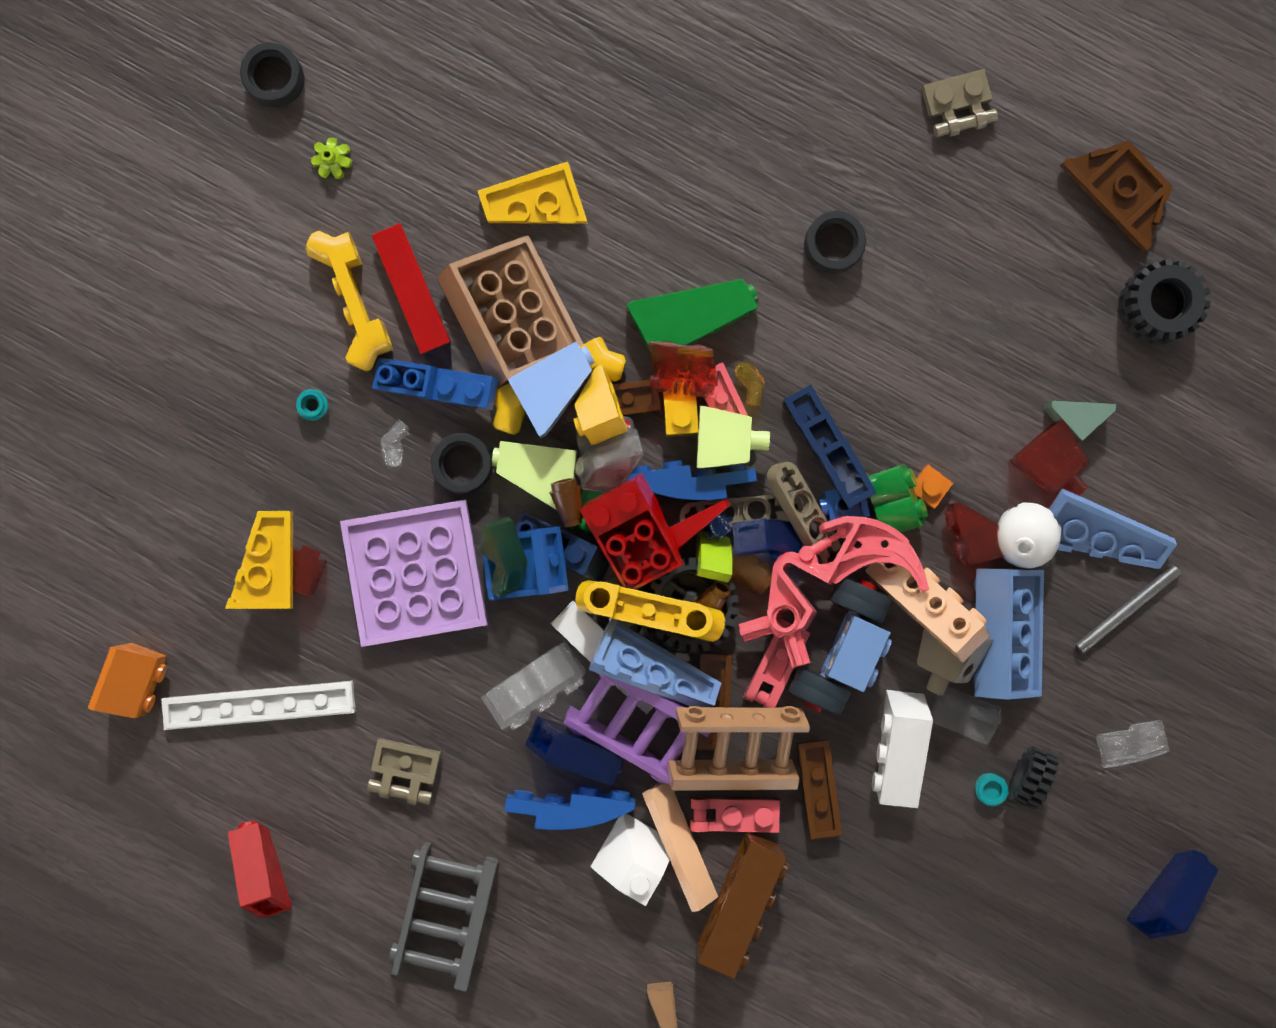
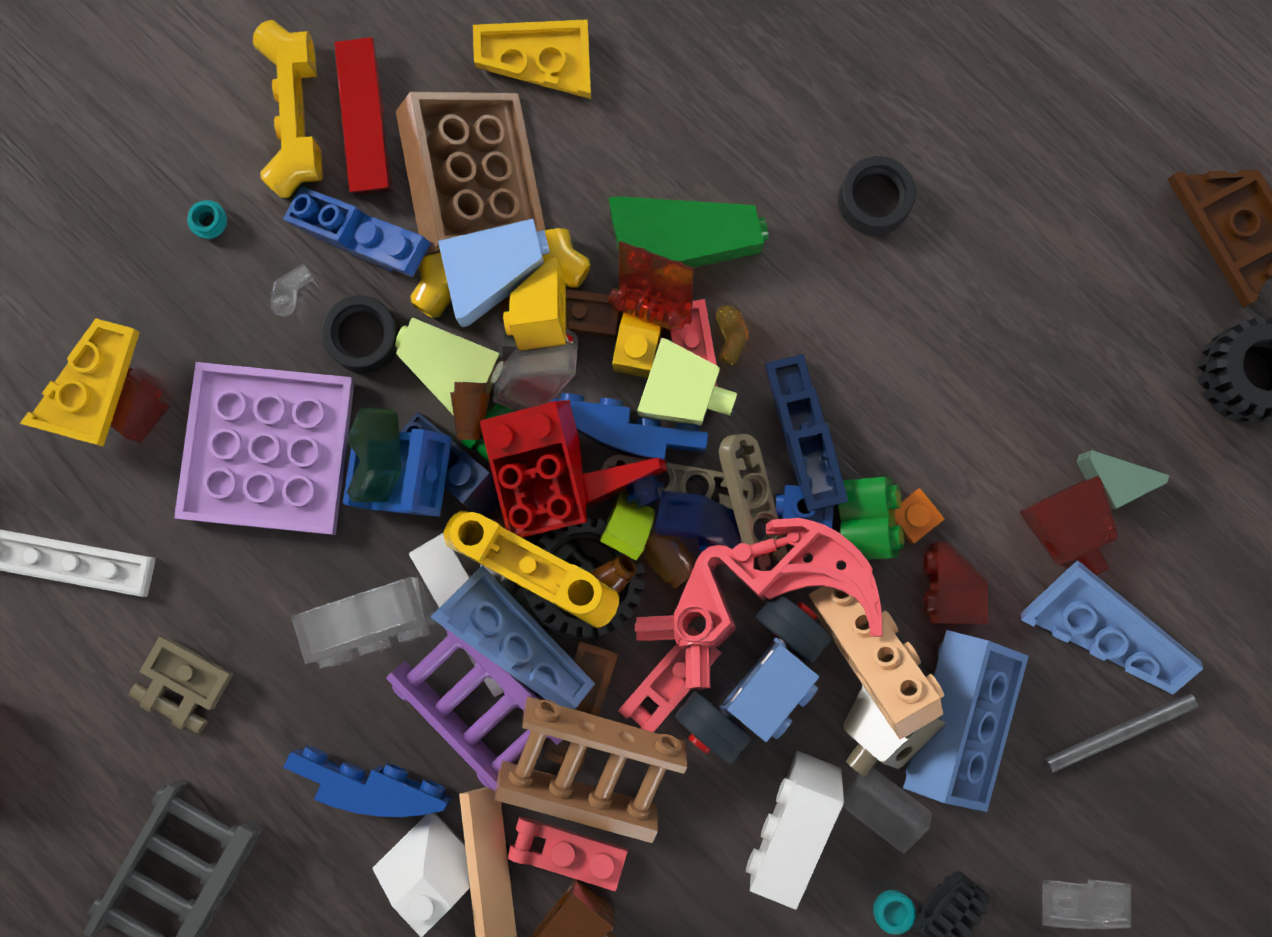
camera: 20 degrees right, 5 degrees down
(572, 752) = (391, 721): clear blue slope -> none
(819, 789) = (680, 851): reddish brown plate -> none
(957, 94) = (1066, 66): dark tan plate -> none
(1028, 535) = (1021, 607): white cylinder -> none

